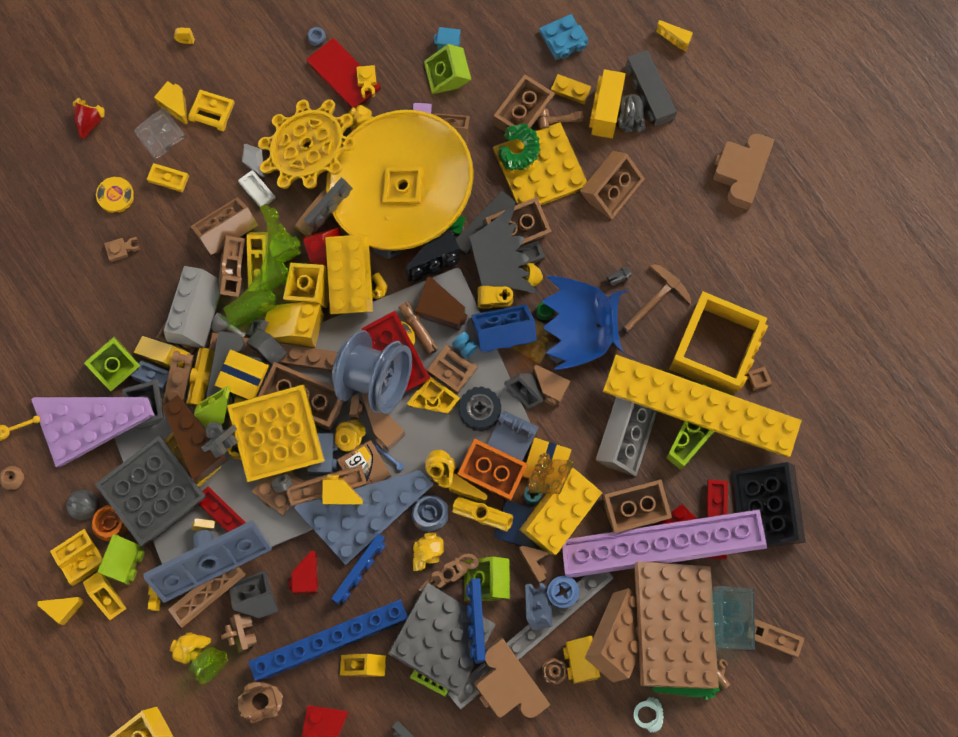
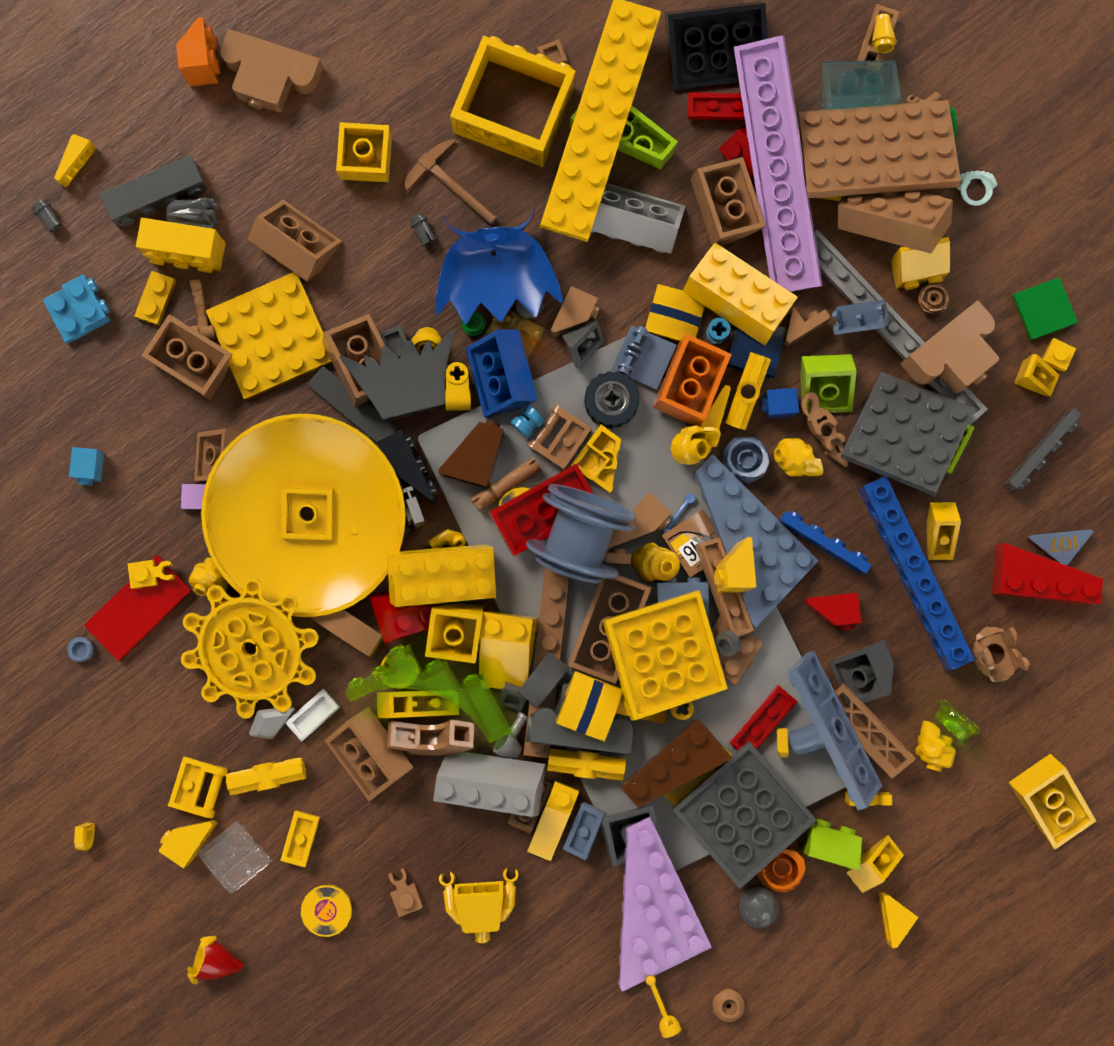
camera: 90 degrees left, 10 degrees up
(77, 557) = (827, 904): yellow slope -> none
(105, 298) = (479, 905): none -> yellow torso
(112, 363) = (570, 887): lime slope -> none
(178, 376) = (592, 794): medium nougat plate -> none
(213, 408) = (636, 740): lime slope -> none
(214, 155) = (266, 776): none -> yellow piece
(219, 438) = (679, 727): dark grey hips -> none
(242, 641) = (922, 682): medium nougat hips -> none
(328, 204) = (342, 609): dark grey plate -> none
(400, 259) = (413, 511): none -> light grey plate
(447, 69) = (130, 464): lime slope -> none
(472, 540) = (780, 403): none -> blue brick
(476, 630) = (893, 389): blue plate -> none
(529, 153) = (254, 344): green piece -> none
(549, 475) = (700, 304): clear yellow hinge -> none
(565, 583) = (842, 276): medium blue gear -> none
(636, 15) = (43, 211): none -> dark grey pin
(678, 234) = (364, 152): none -> yellow brick
(754, 118) = (197, 54): none -> orange slope
(774, 639) = (883, 35): none -> yellow cone

